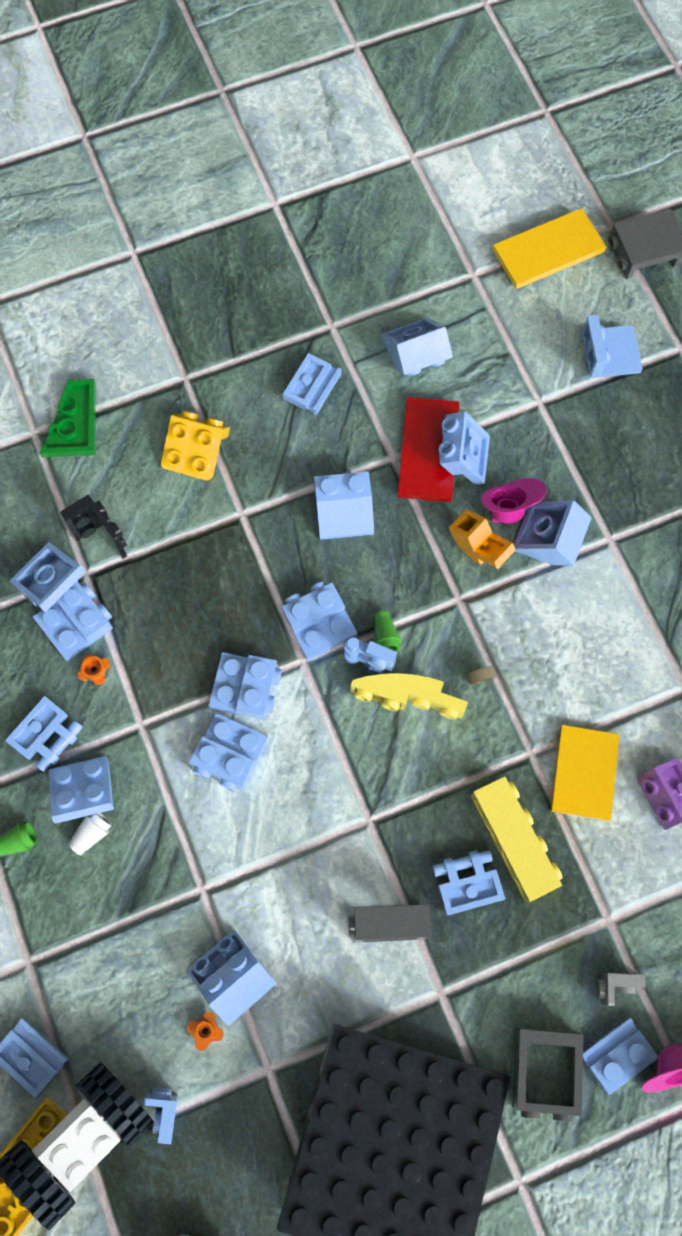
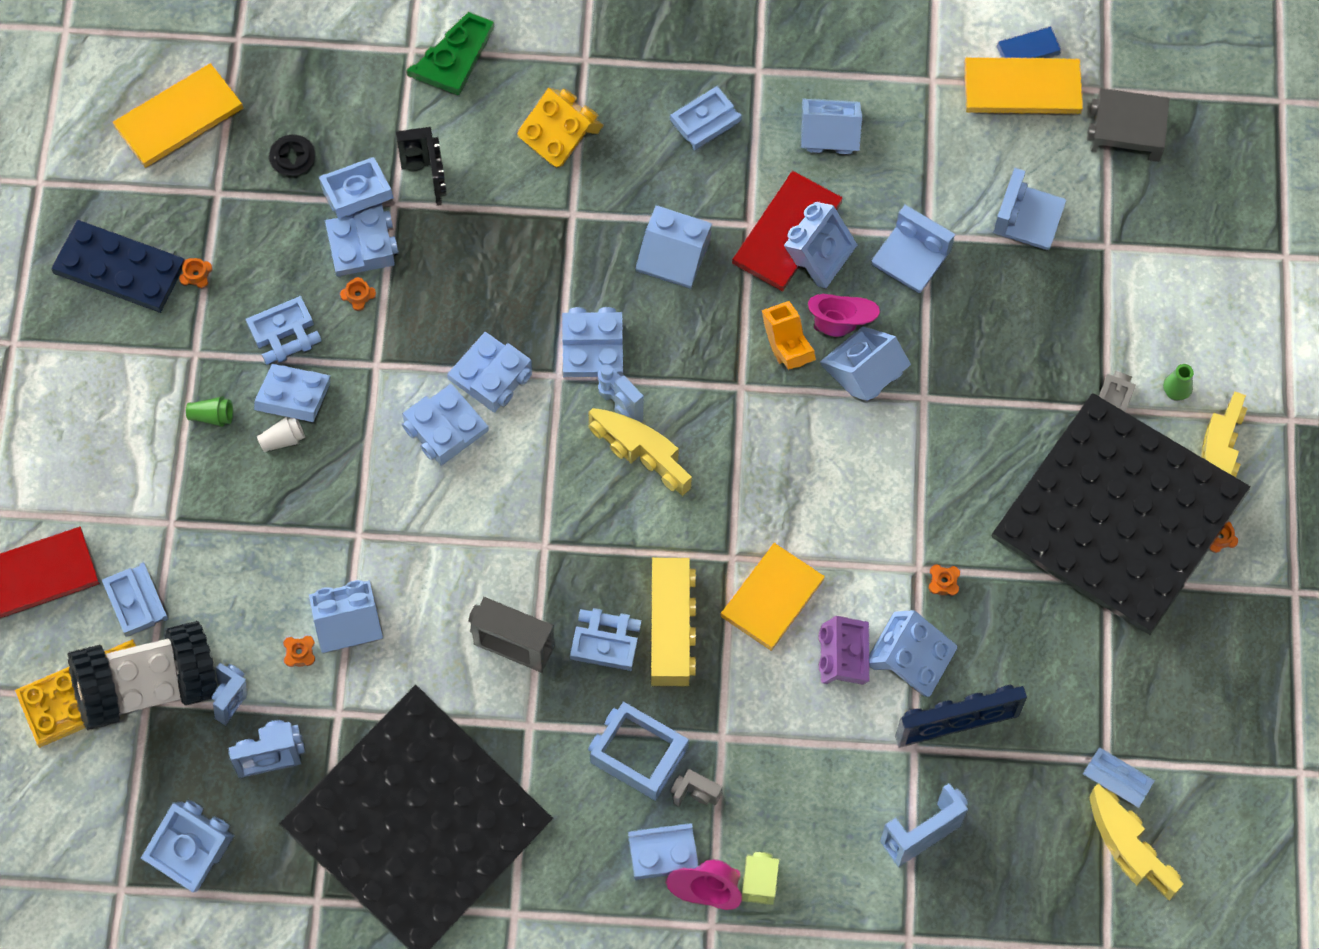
camera: 25 degrees right, 5 degrees down
(233, 1143) = (277, 749): none -> light blue plate
(385, 631) = (650, 383): bright green cone -> none
(481, 675) = (721, 462): dark tan tile -> none
(533, 1109) = (602, 801): dark grey window -> none
(537, 213) = (1030, 45): none -> blue tile
(539, 419) = (914, 249): none -> light blue bracket
(582, 973) = (655, 784): none -> light blue window

